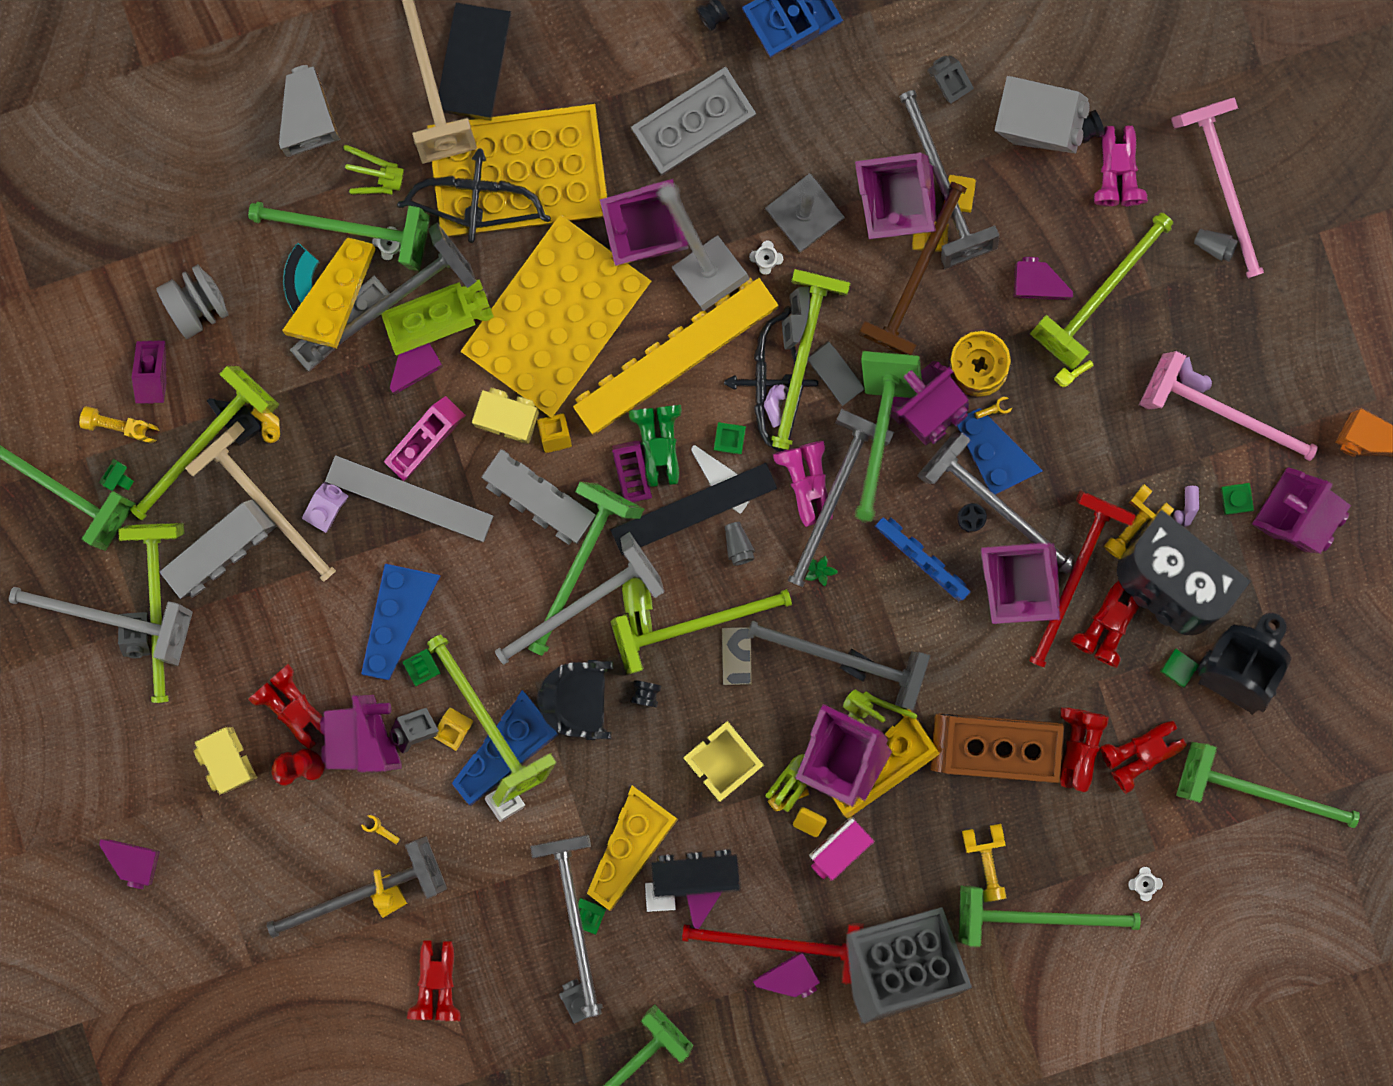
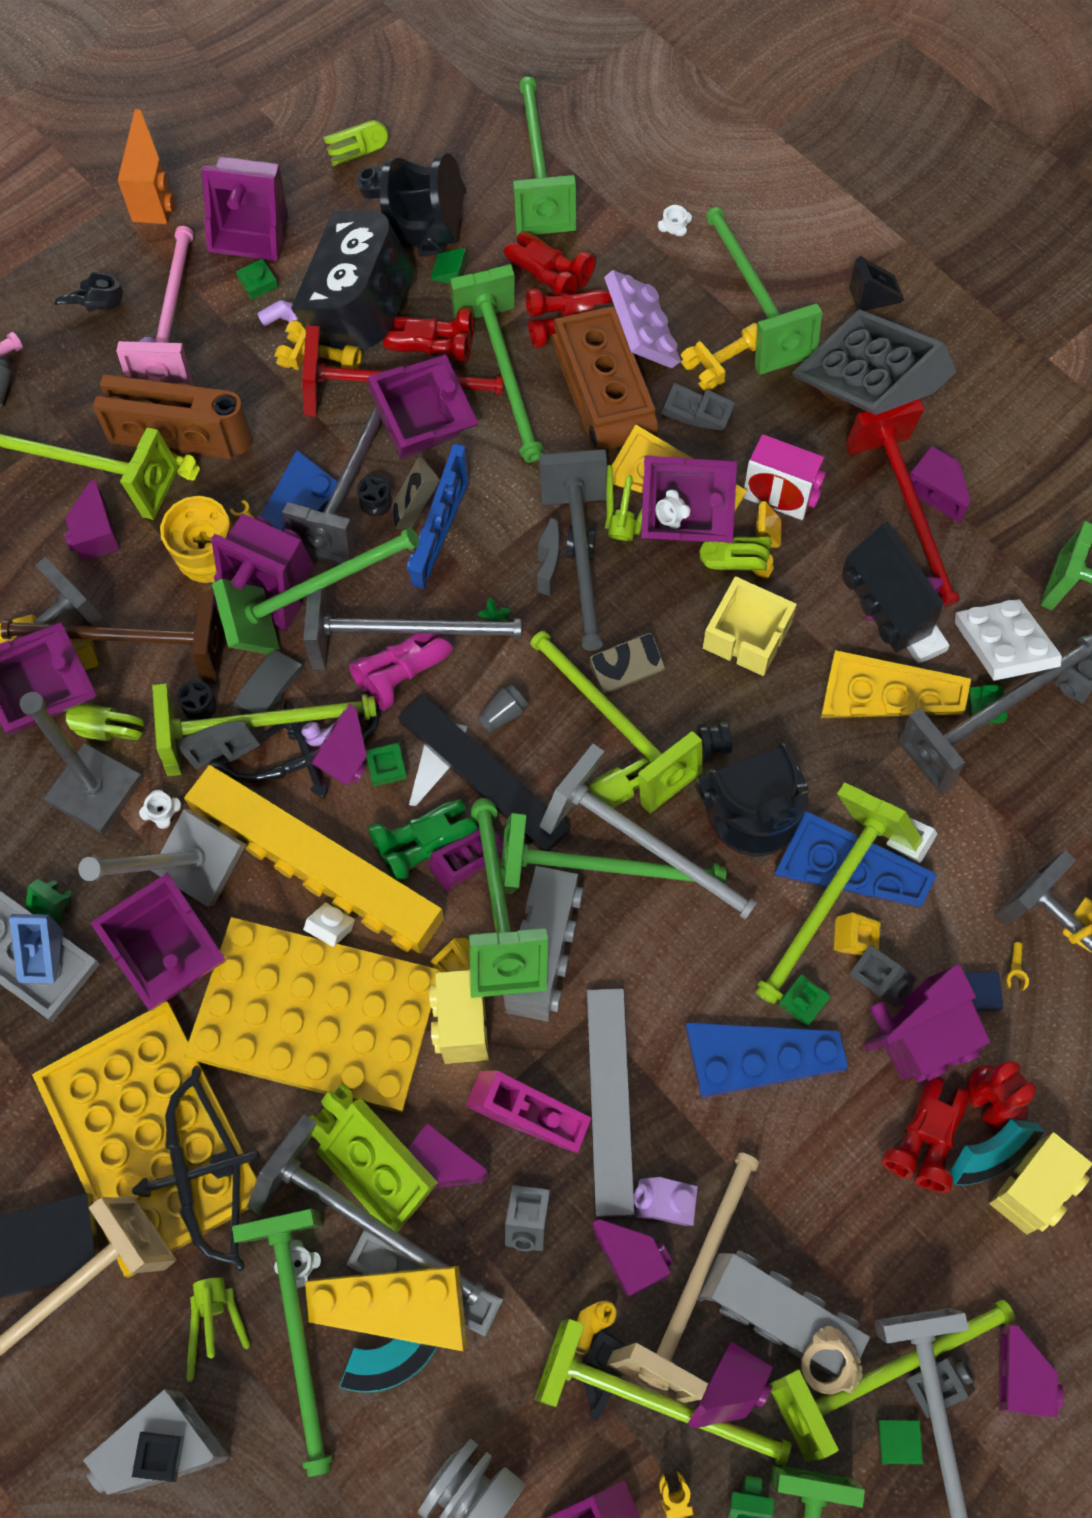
camera: 110 degrees left, 20 degrees down
(112, 590) = (899, 1442): none -> green tile
(113, 690) = (1026, 1378): none -> magenta slope
(163, 575) = (850, 1373): none -> tan piece
(187, 496) = (733, 1388): none -> magenta slope
(259, 745) = (997, 1154): none -> teal tile
(294, 114) = (158, 1456): none -> black tile
(297, 468) = (633, 1257): none -> magenta slope
(353, 408) = (526, 1218): none -> dark grey bracket
(374, 796) = (986, 989): none -> dark blue tile
(515, 457) = (504, 959): none -> bright green tile
(619, 350) = (329, 924): none -> white plate
(628, 953) = (1007, 639): none -> white plate
(681, 134) = (36, 947): none -> medium blue slope
(723, 150) = (45, 899): none -> green tile
(750, 407) = (343, 749): none -> magenta slope
(840, 740) = (672, 510): none -> white plate
(844, 309) = (193, 693): none -> black wheel
(853, 237) = (102, 722): none -> lime arm
(861, 638) = (548, 554): none -> dark grey slope
(946, 816) = (703, 411): none -> dark grey slope
(952, 546) = (413, 495): none -> dark tan slope
(1000, 1023) = (873, 286): none -> black slope
(1044, 805) = (642, 319): none -> lavender plate
(1094, 409) = (187, 416): none -> dark orange hinge
(1119, 680) = (490, 294): none -> bright green tile
(1273, 359) = (101, 292): none -> black piece
(1349, 638) = (356, 141): none -> lime arm

